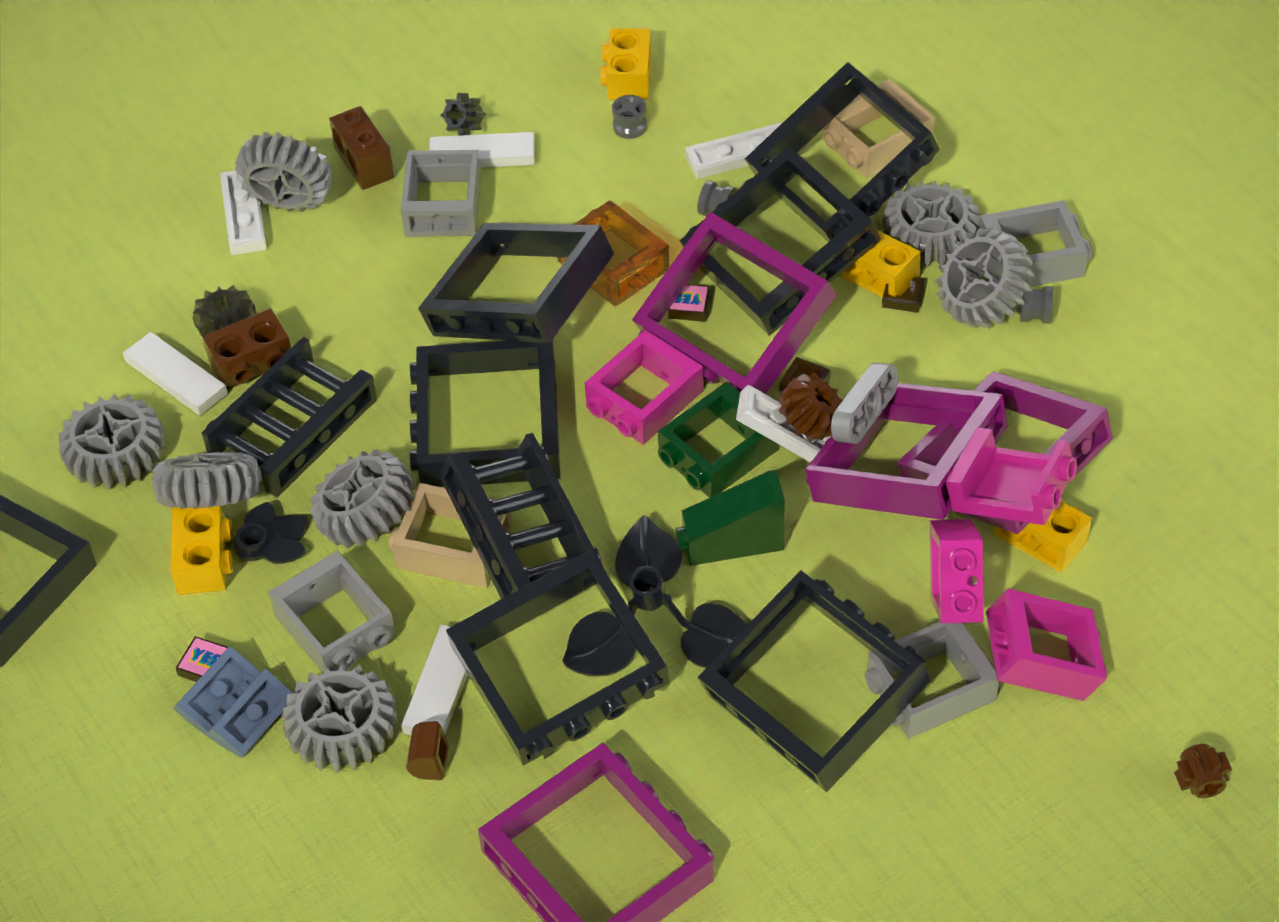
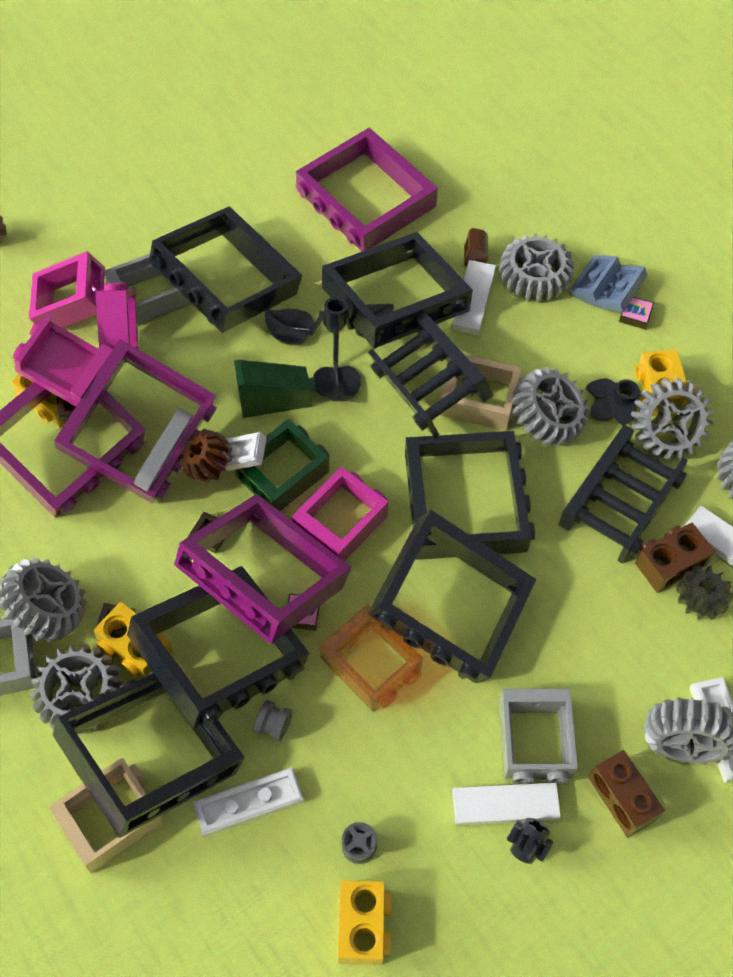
camera: 175 degrees right, 10 degrees up
(329, 578) = (554, 304): light grey window -> none

